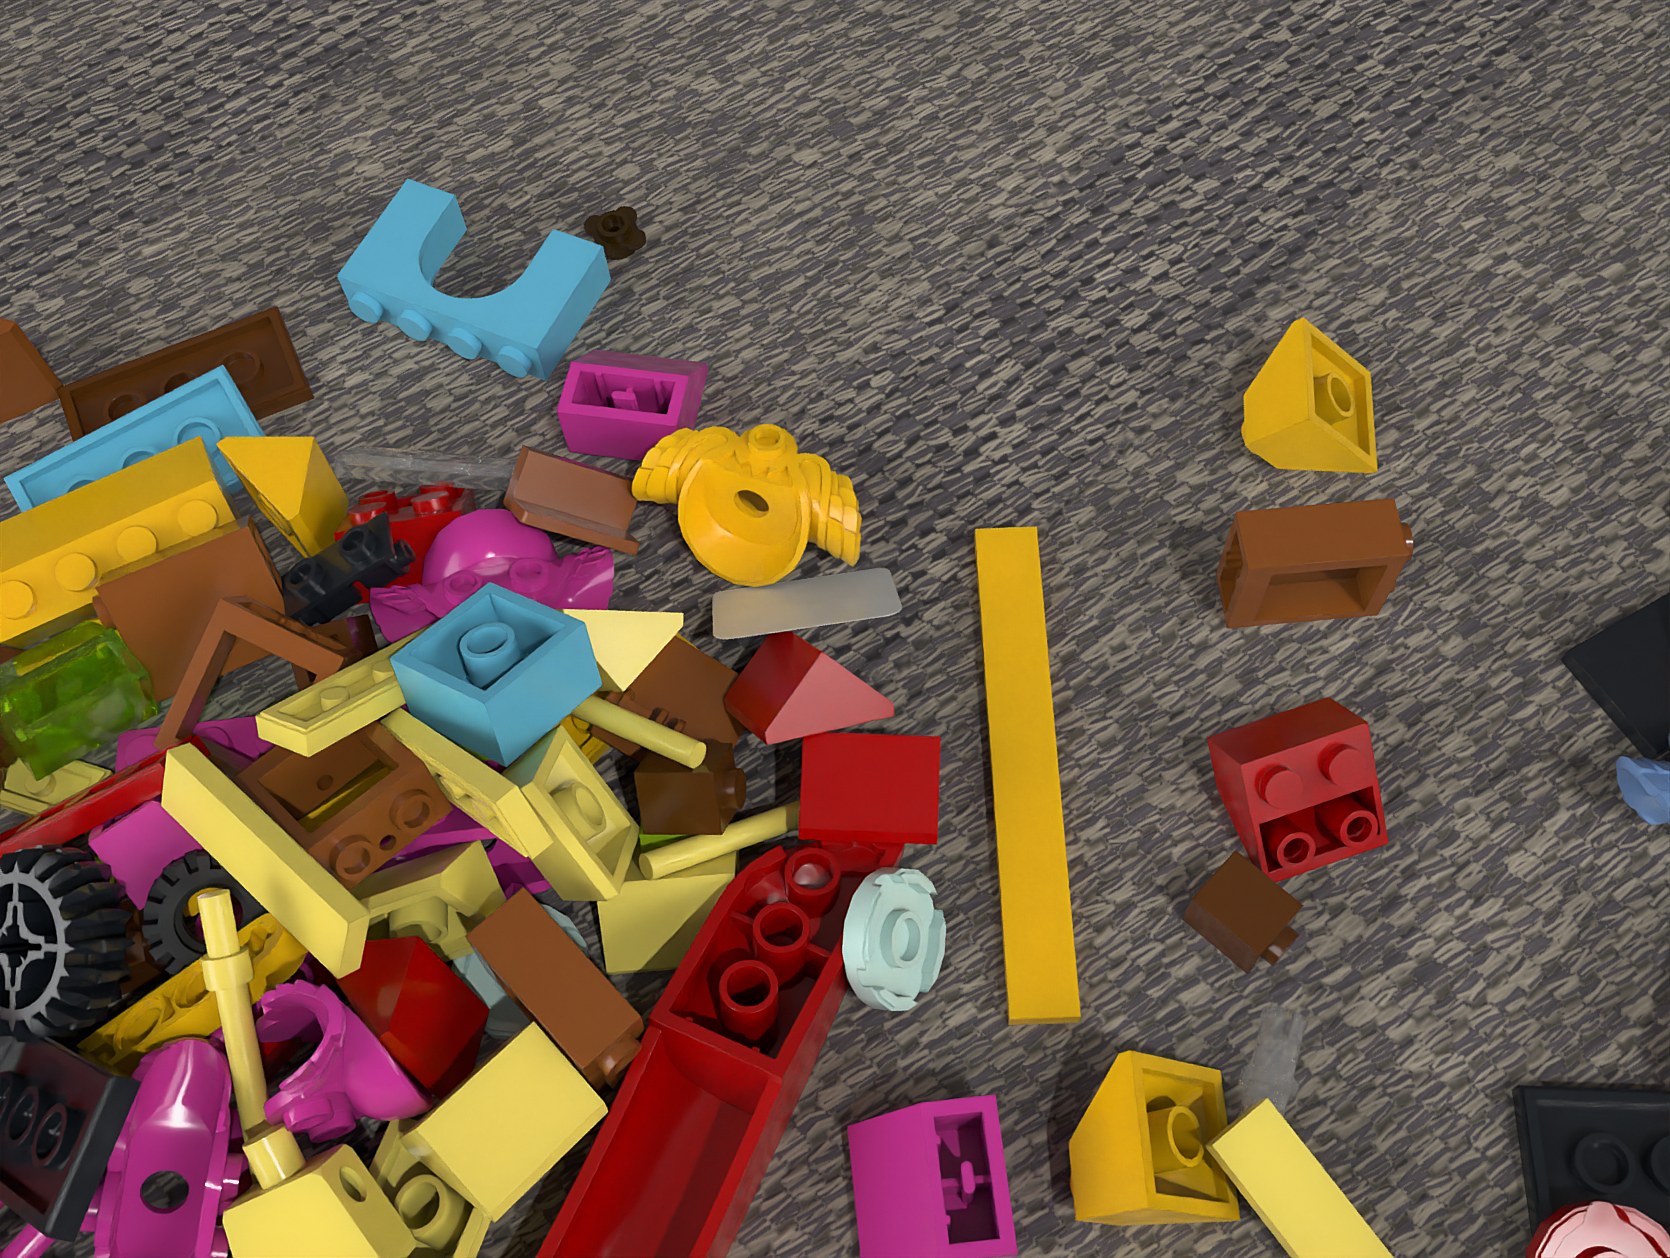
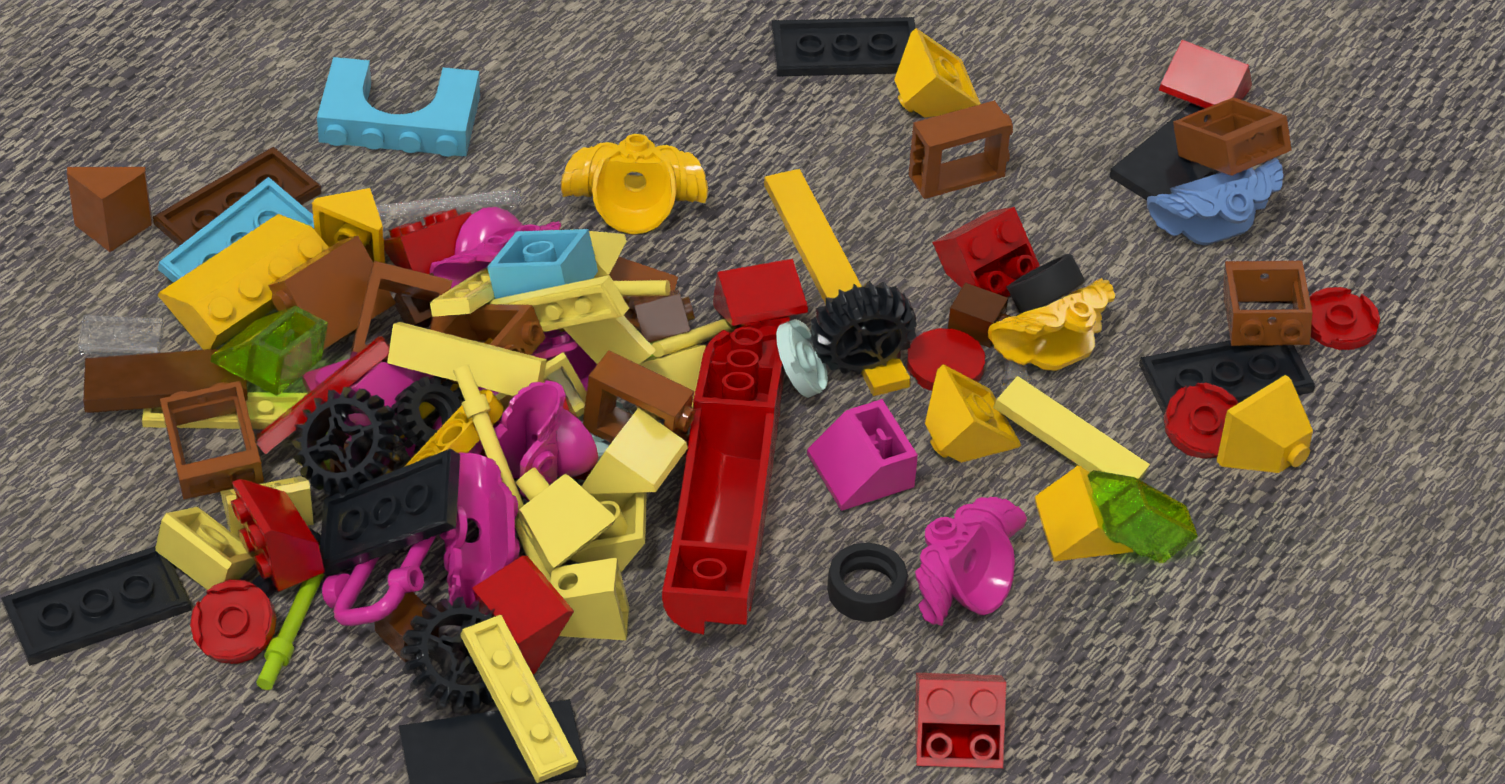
camera: 25 degrees left, 15 degrees down
(323, 585) = (426, 243): black hinge -> none
(572, 499) = (528, 199): dark orange panel -> none
(616, 244) = (476, 62): dark brown plate -> none
(628, 402) = (533, 154): dark pink slope -> none
(800, 692) = (706, 252): slope -> none
(804, 603) = (685, 225): white sticker -> none
(1015, 918) = (863, 328): none -> black gear
(1158, 988) = (944, 347): none -> red tile
(1184, 308) = (840, 45): none -> black tile
(1376, 988) = (1057, 332): none -> yellow piece
(1383, 891) = (1046, 283): none -> black tyre

